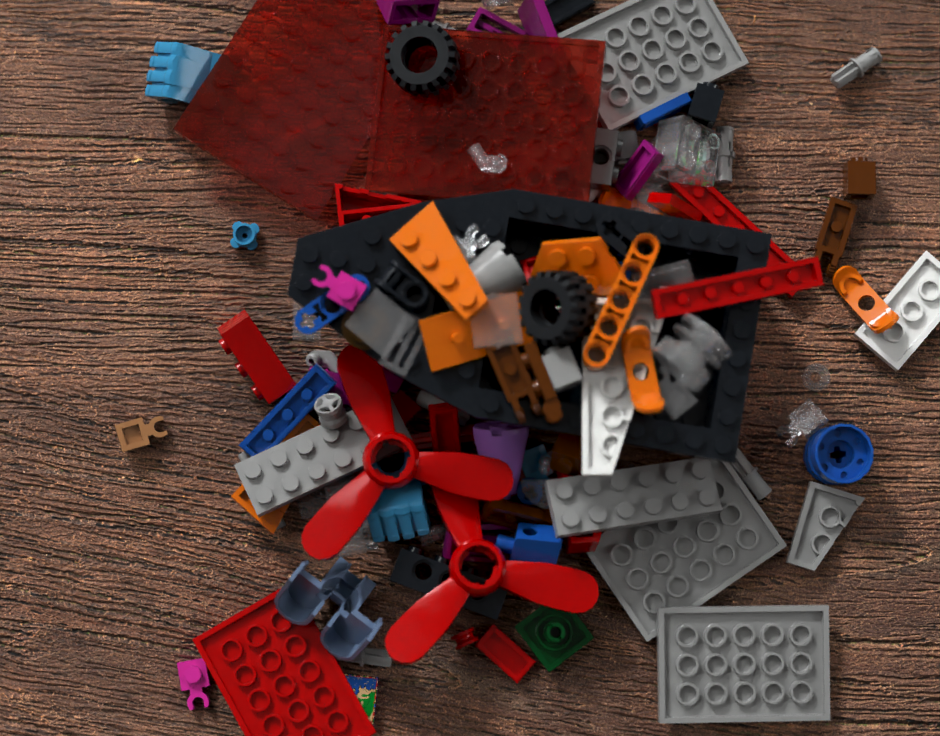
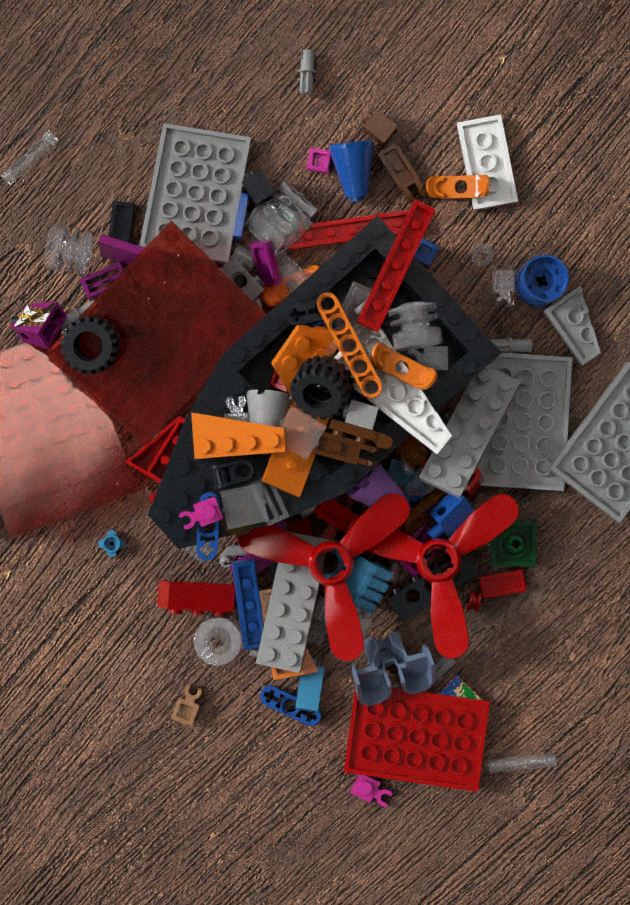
camera: 50 degrees left, 5 degrees up
(230, 554) = (272, 704): none -> blue beam
(241, 419) = (230, 636): none -> clear wheel
(248, 542) = (309, 691): none -> dark azure tile
(330, 411) = (269, 576): light grey wheel -> none
(486, 162) = (189, 356): clear arm -> none
(674, 206) = (307, 258): red tile -> none
(773, 318) = (426, 252): none -> blue tile
(779, 146) = (319, 160): none -> dark pink tile
(800, 182) = (353, 167): none -> blue cone

